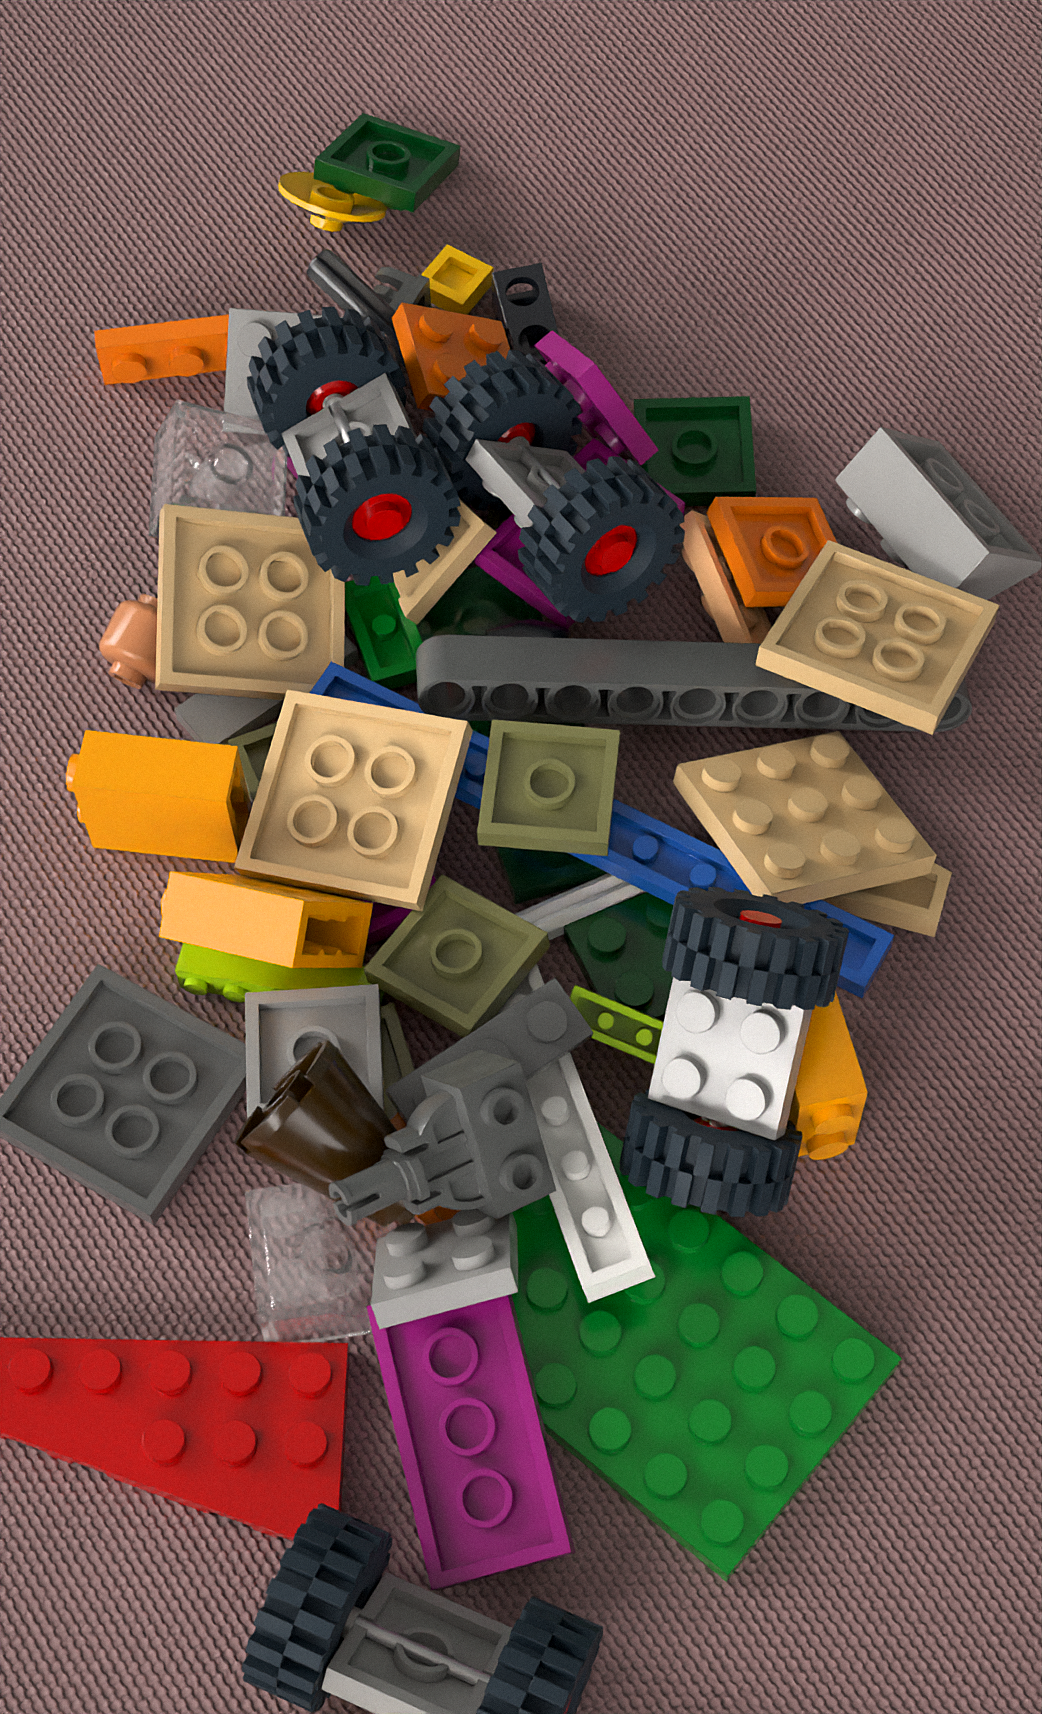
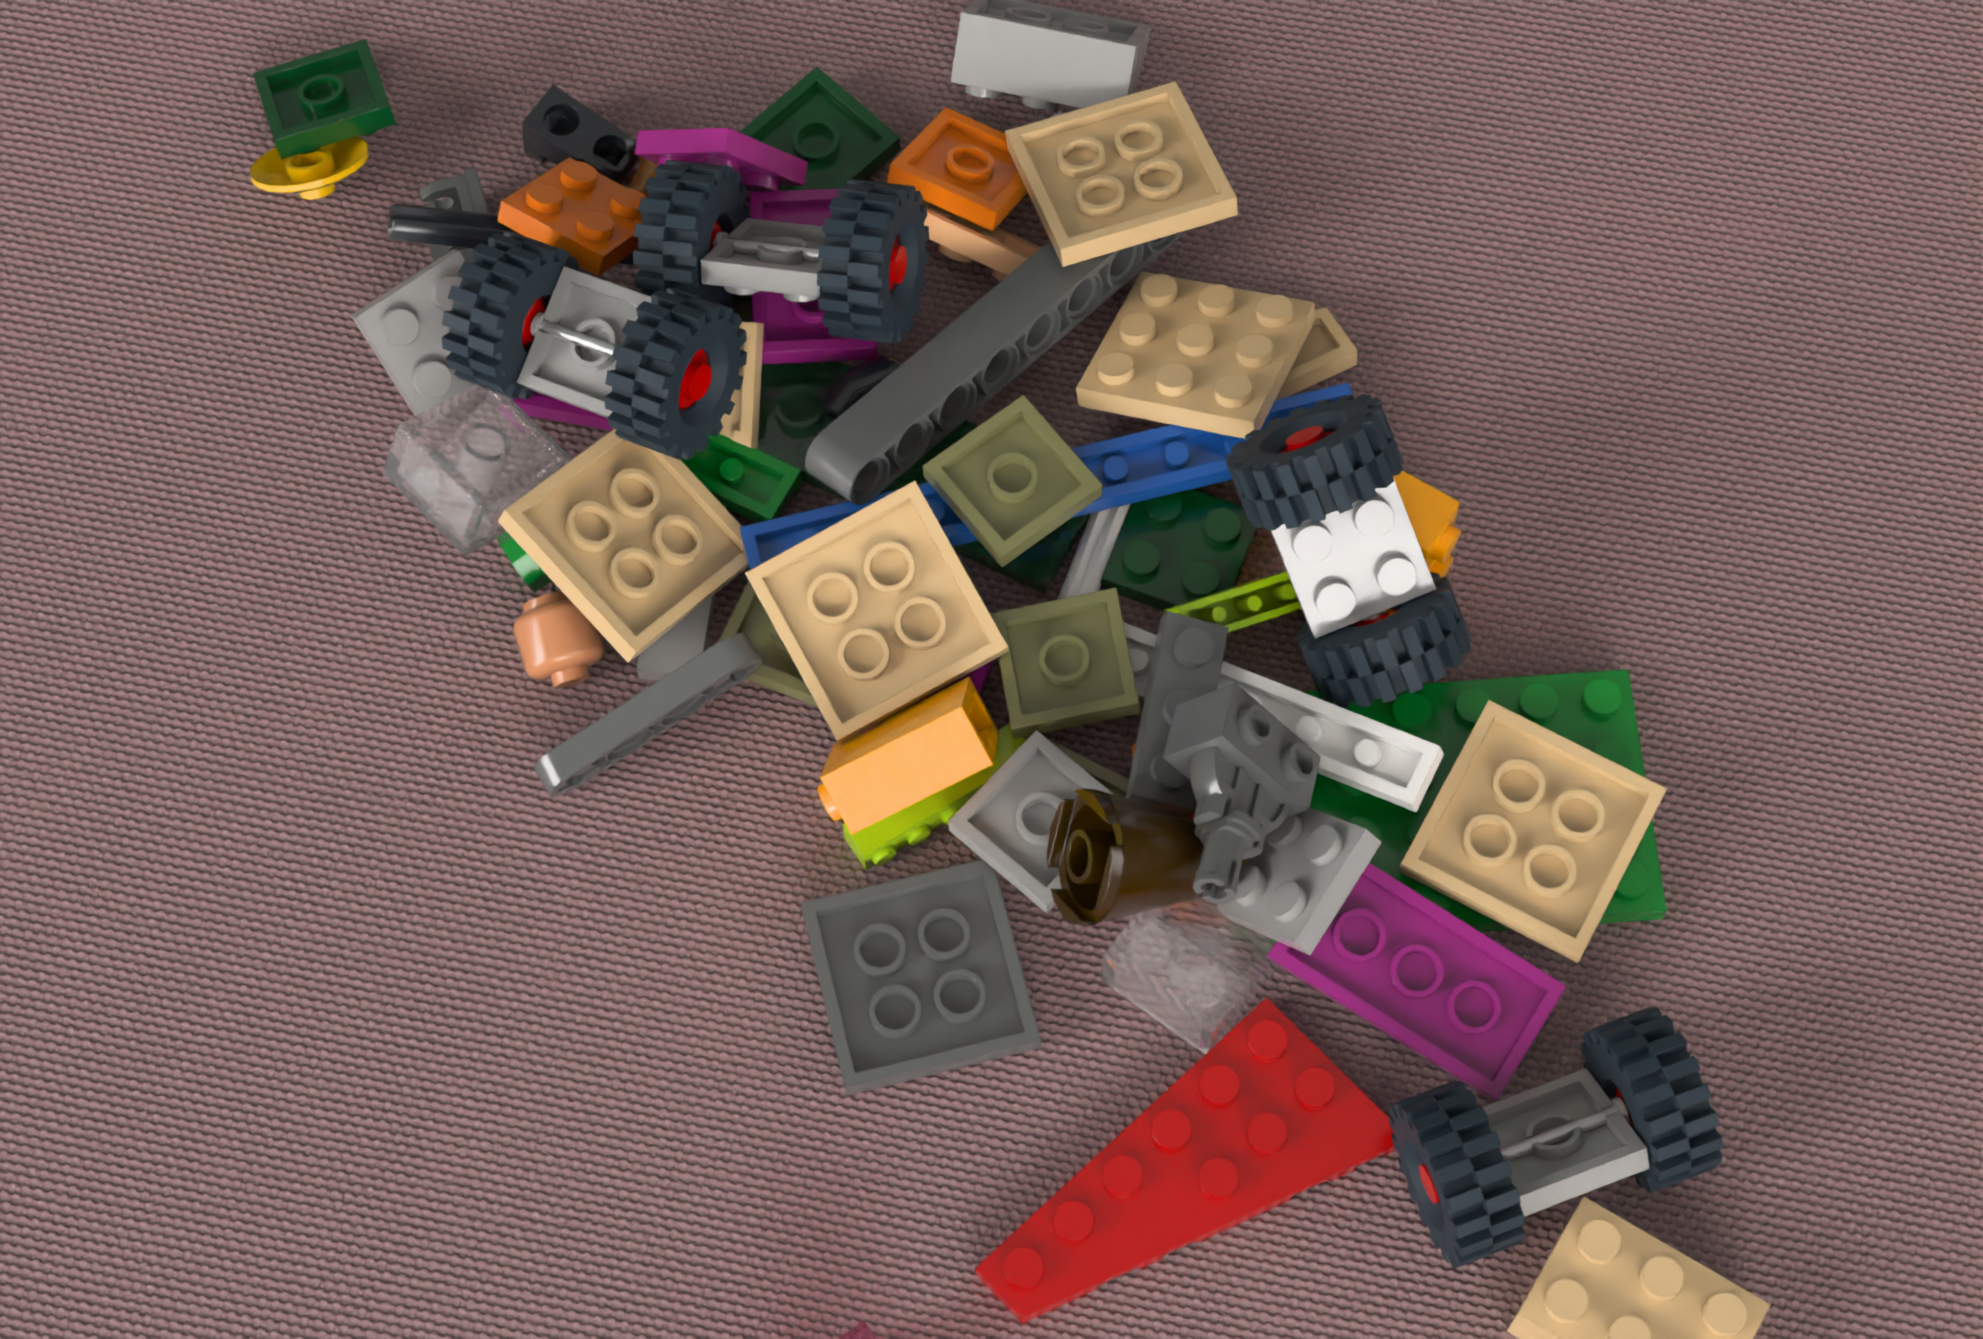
camera: 45 degrees left, 5 degrees up
(62, 731) = (648, 714): none -> dark grey beam
(160, 795) = (719, 738): light orange brick -> none
(162, 349) = (312, 395): orange plate -> none
(457, 280) = (487, 149): yellow plate -> none
(674, 1407) = (1532, 831): none -> tan plate

